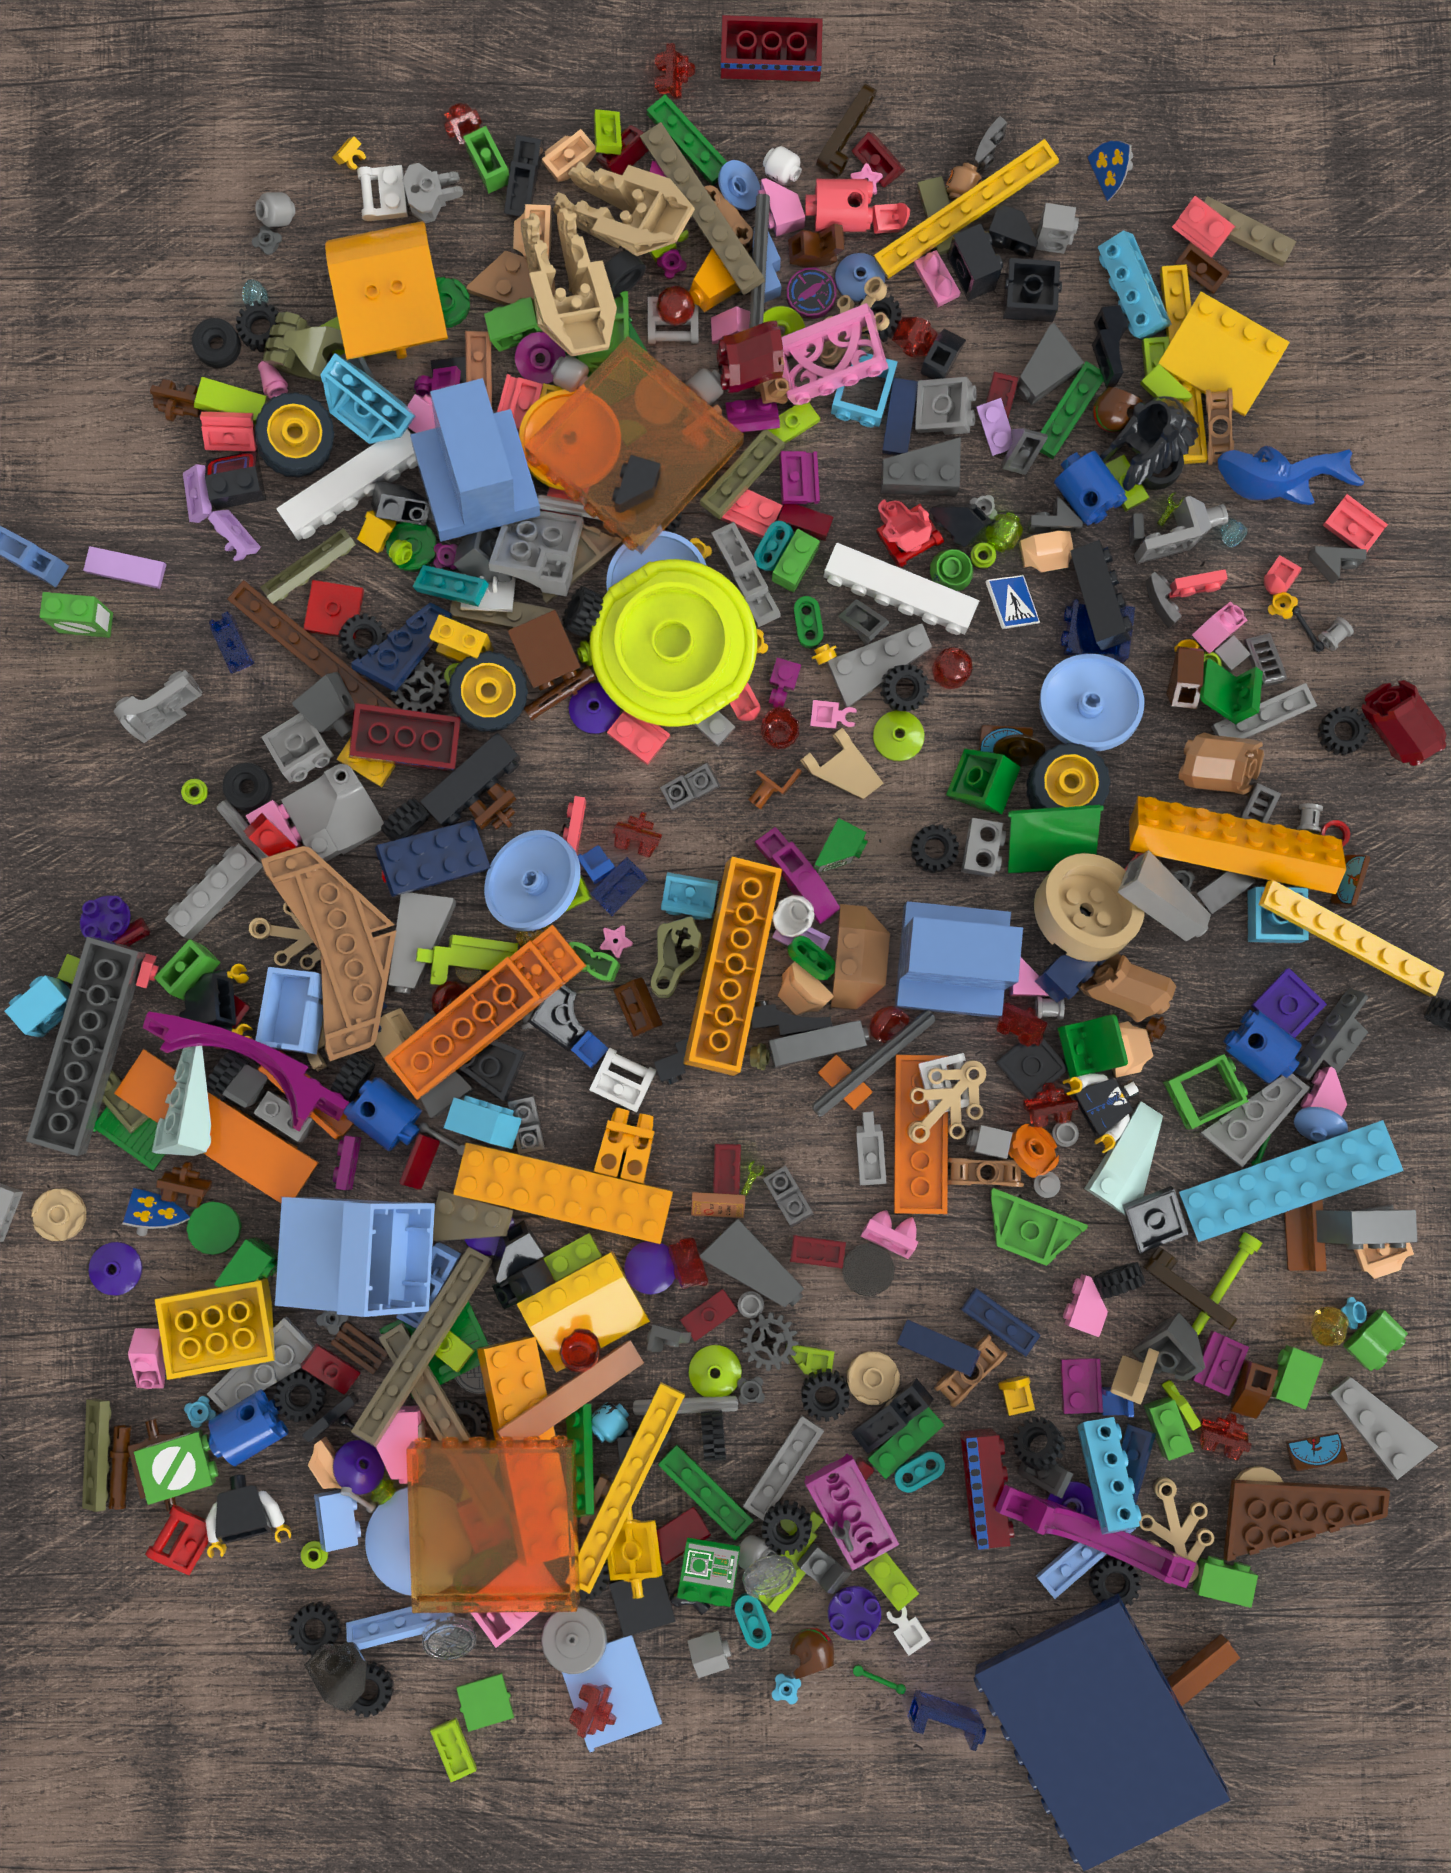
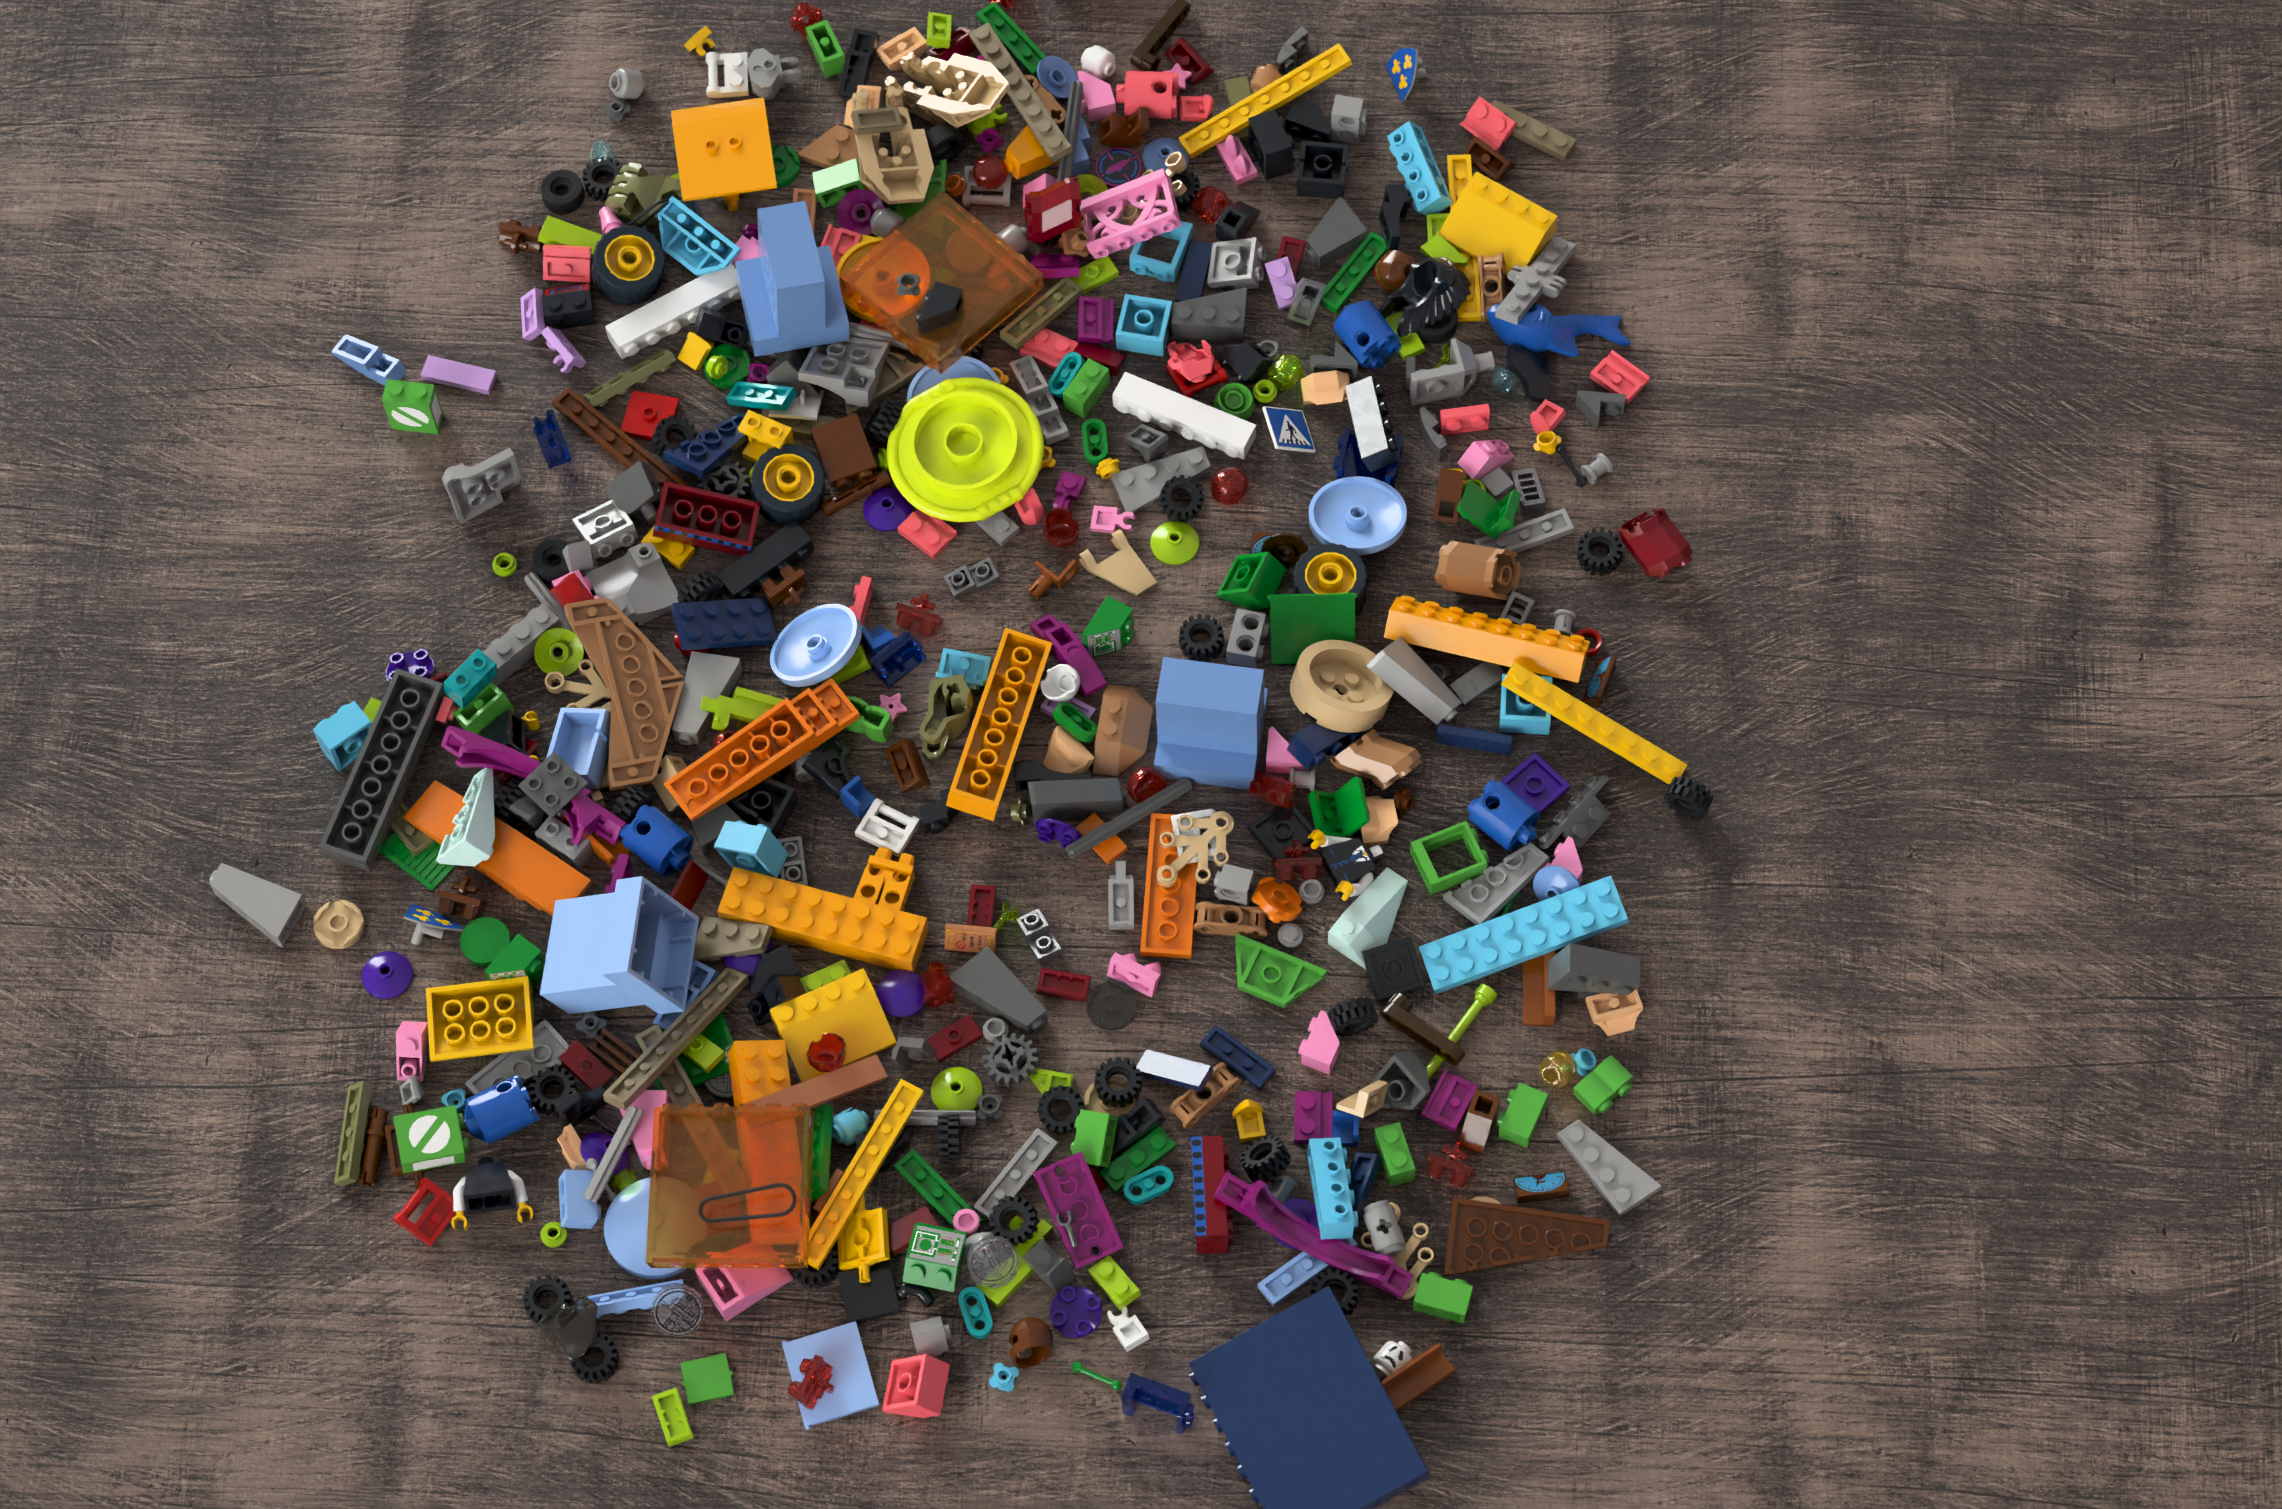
camera: 10 degrees right, 20 degrees down
(153, 1404) = (411, 1091): none -> light grey slope
(167, 944) = (470, 678): none -> teal brick
(257, 906) = (571, 653): none -> lime dish
(267, 1067) = (553, 785): none -> dark grey hinge
(271, 786) = (578, 556): none -> light grey slope
(309, 377) = (665, 201): none -> black piece
(368, 1485) = (613, 1153): none -> light grey axle
(515, 1564) = (750, 1216): none -> black piece
(551, 255) = (876, 120): none -> dark tan tile
(574, 1640) = (799, 1319): light grey wheel -> none
(600, 448) = (908, 279): none -> dark grey plate
(635, 321) = (955, 185): none -> dark orange plate
(698, 1707) = (916, 1386): none -> coral slope
(737, 1527) = (966, 1221): none -> bright pink tile
(812, 1086) = (1056, 830): none -> dark purple dish
(852, 484) = (1144, 325): none -> medium azure brick
(862, 1431) = (1095, 1137): none -> bright green brick
(882, 1380) = (1118, 1096): none -> black tyre
(1168, 1532) = (1383, 1214): none -> light grey piece
(1178, 1652) = (1391, 1358): none -> white head
(1186, 1412) = (1413, 1141): lime tile -> none
(1225, 954) = (1474, 739): none -> dark blue tile
(1265, 524) = (1531, 371): none -> black tile
(1268, 419) = (1536, 280): none -> light grey hinge

